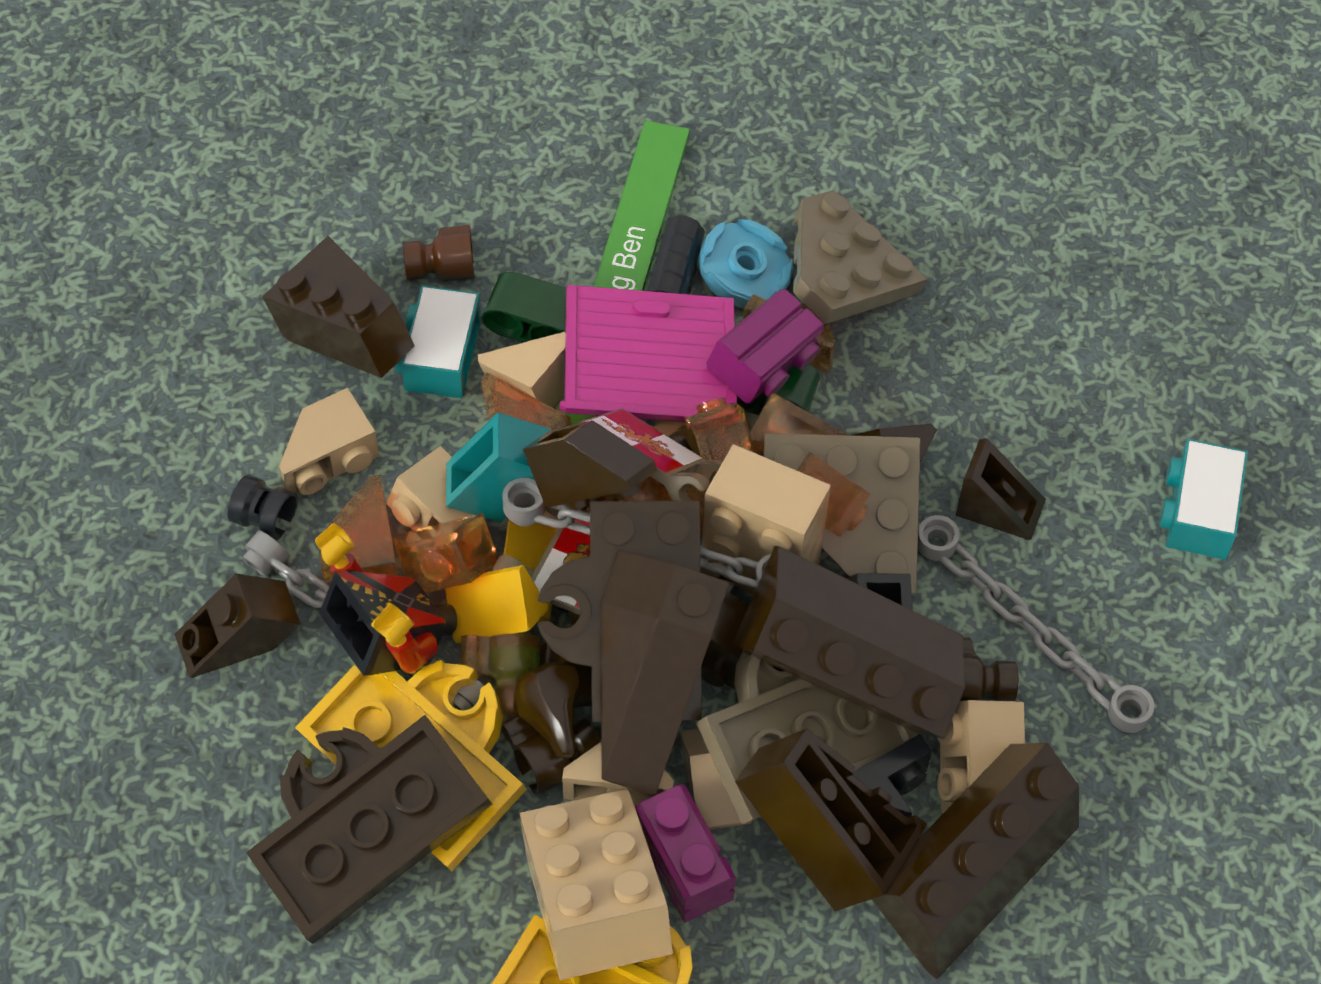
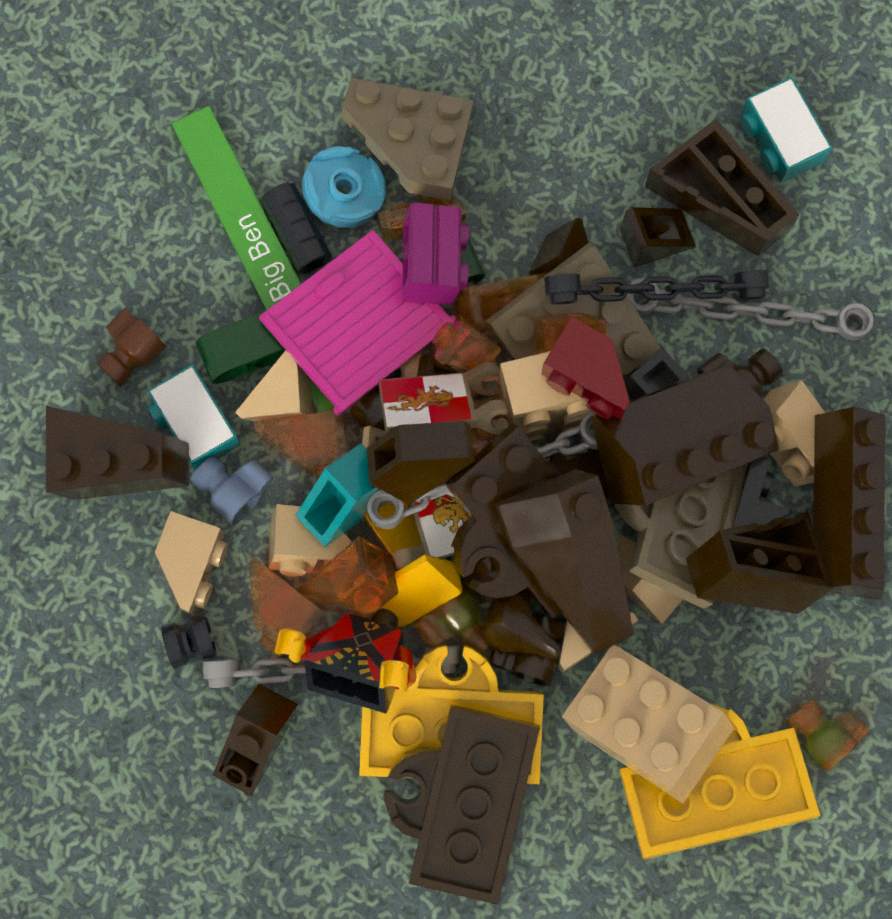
camera: 40 degrees left, 20 degrees up
(416, 420) = (232, 491): none -> sand blue piece
(685, 853) = (676, 651): magenta brick -> none
(806, 492) = (589, 367): none -> dark red slope
(857, 443) = (565, 287): none -> black piece
(1095, 498) = (723, 189): none -> dark brown wedge

